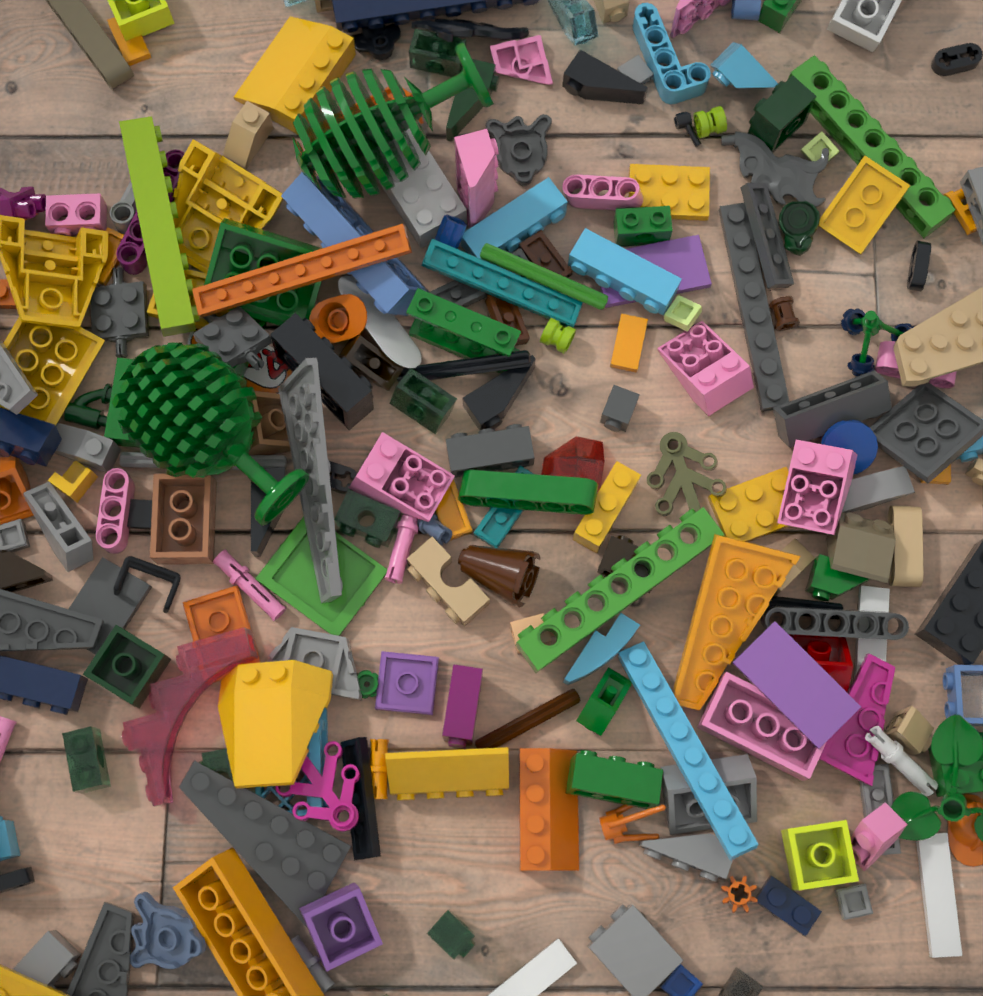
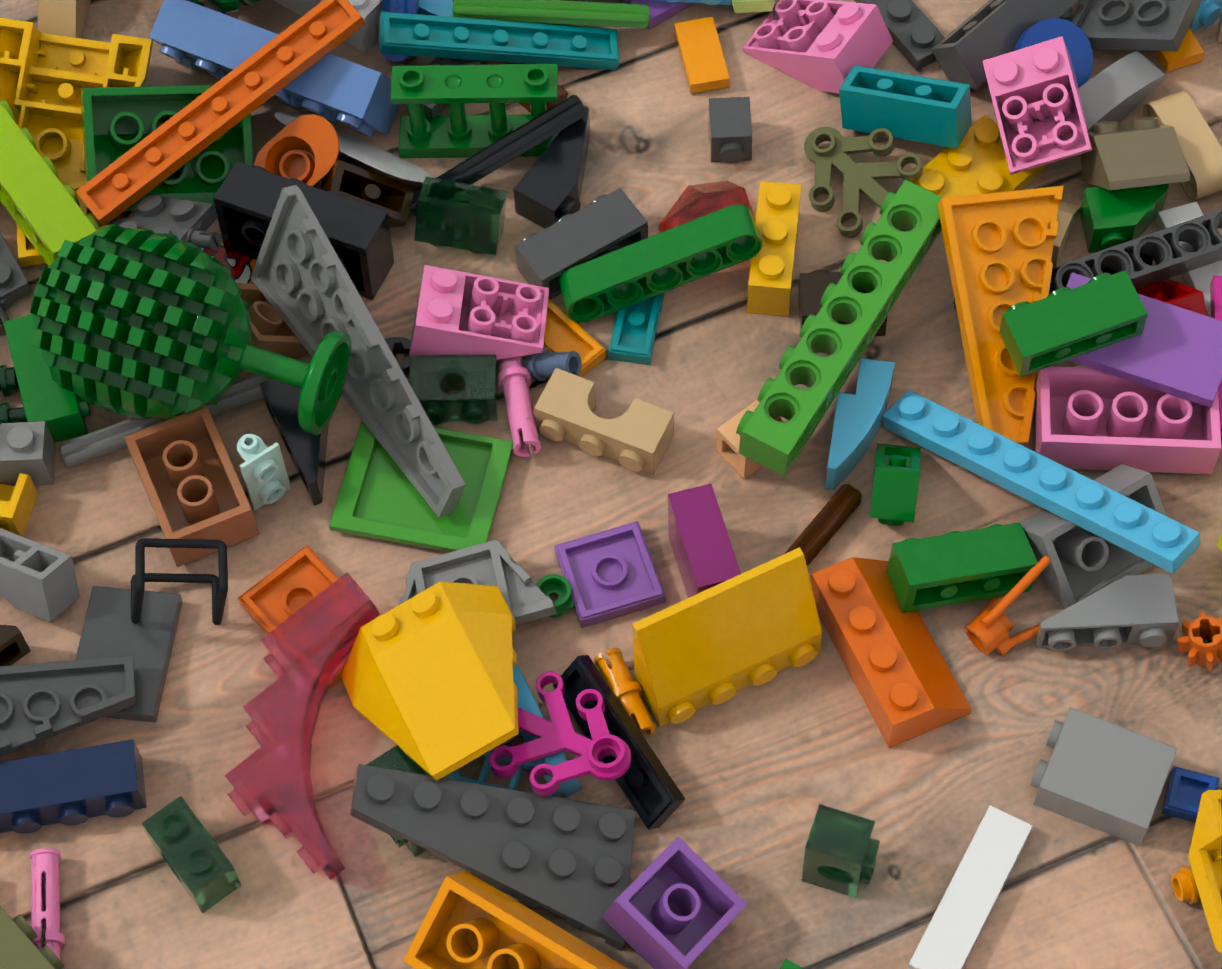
camera: 20 degrees left, 15 degrees down
(110, 498) = (88, 536): bright pink beam -> none
(127, 666) = (196, 704): dark green brick -> none
(140, 514) = (128, 511): black tile -> none
(226, 529) = (262, 470): none -> light aqua hinge
(241, 577) = (307, 531): bright pink pin -> none
(502, 570) = (671, 374): reddish brown cone -> none
(558, 335) = (601, 77): lime wheel -> none
(735, 445) = (906, 106): none -> teal brick
(755, 659) = (1072, 322): none -> green brick

